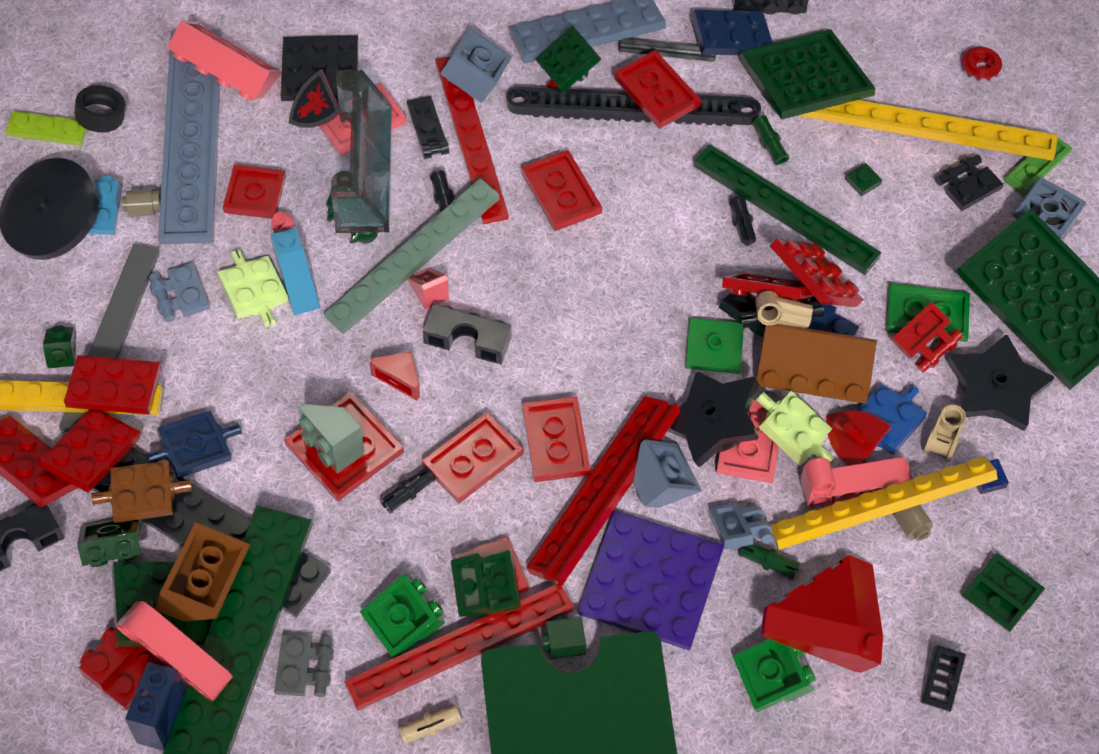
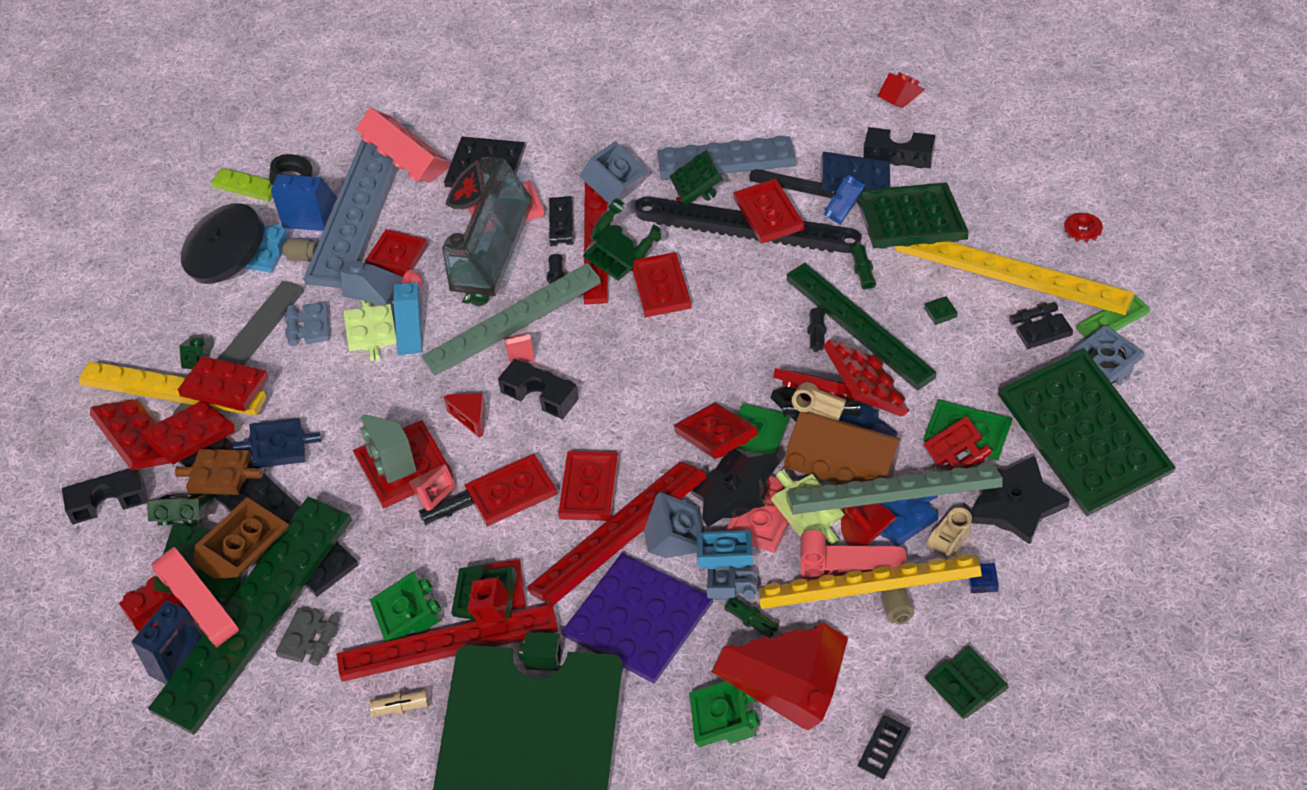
camera: 20 degrees right, 10 degrees down
(130, 146) = (303, 201): none -> blue slope
(239, 235) = (368, 283): none -> sand blue slope
(388, 471) = (432, 486): none -> coral slope
(501, 157) = (612, 249): none -> dark green torso
(504, 604) = (488, 600): none -> red brick
(675, 355) = (715, 430): none -> red plate
(728, 492) = (724, 549): none -> dark azure plate
(730, 64) = (843, 199): none -> blue hinge
(882, 397) = (893, 489): none -> sand green plate

